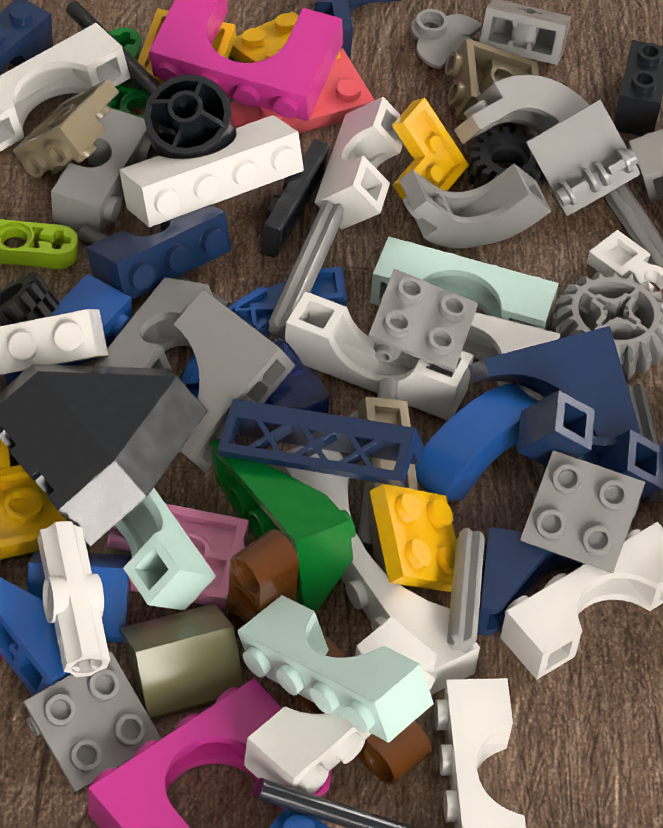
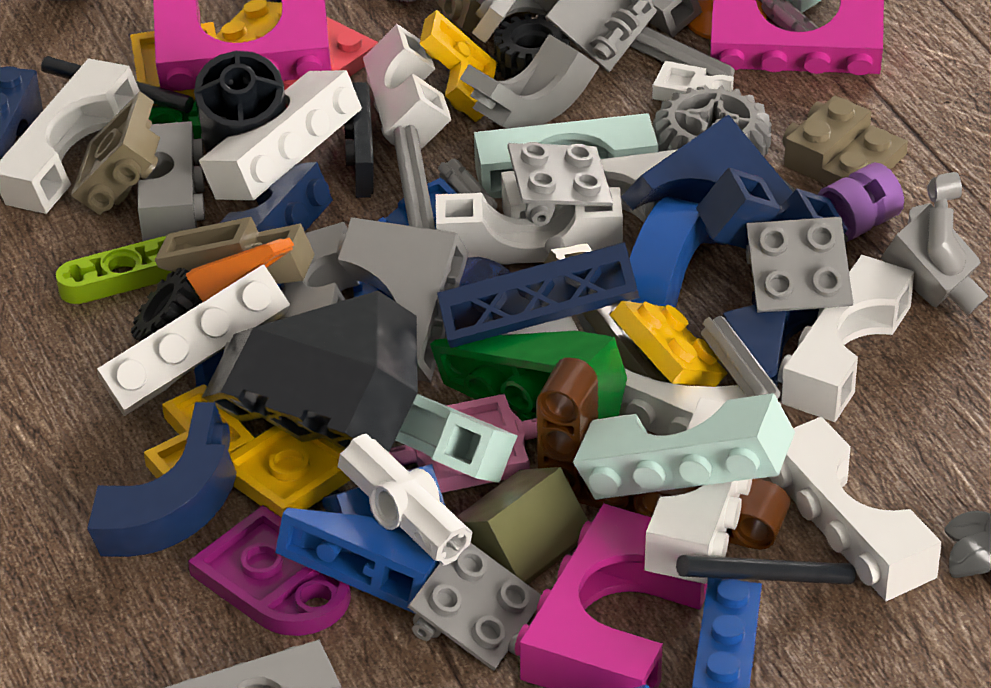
camera: 20 degrees left, 10 degrees down
(65, 296) = (219, 274): none -> orange slope
(96, 279) = (216, 241): none -> dark tan slope
(358, 288) = (462, 181): none -> light grey axle

